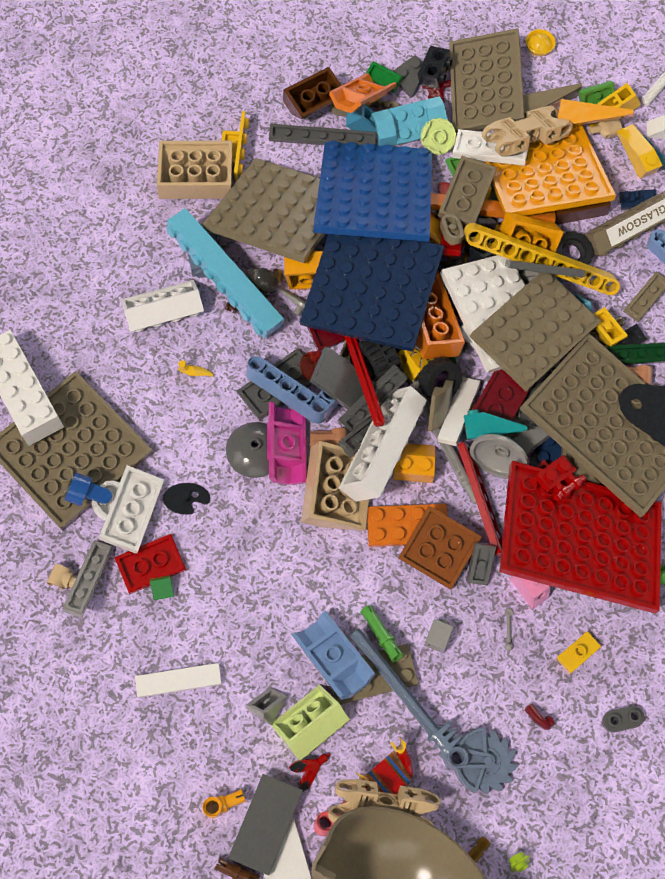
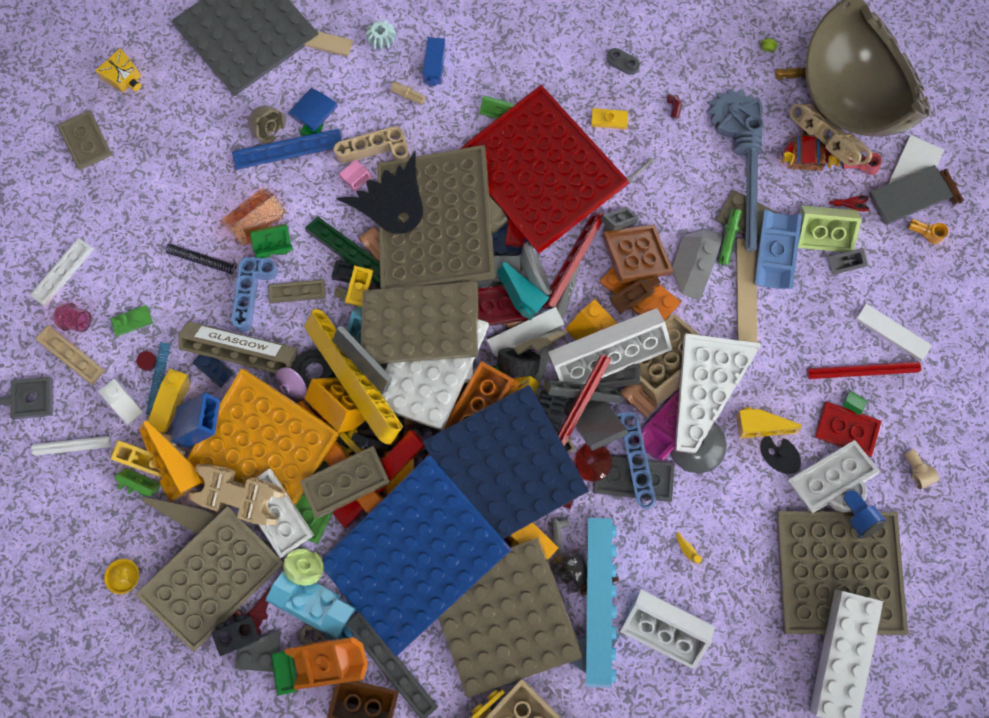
camera: 135 degrees left, 5 degrees up
(87, 579) = (909, 452): light grey tile -> none
(175, 625) = (864, 370): none -> red axle
(221, 502) = (761, 423): none -> yellow slope
(289, 483) = (708, 377): none -> white wing
(320, 596) = (746, 293): none -> tan tile
(390, 591) = (695, 261): none -> light grey wedge
(408, 509) = (634, 294): none -> reddish brown hinge
(439, 635) = (691, 203): light grey brick -> none
(452, 229) = (396, 453): dark tan plate -> none
(557, 472) = (516, 218): red plate -> none
(576, 225) = (291, 384): none -> lavender dish
(605, 149) = (195, 420): none -> blue brick

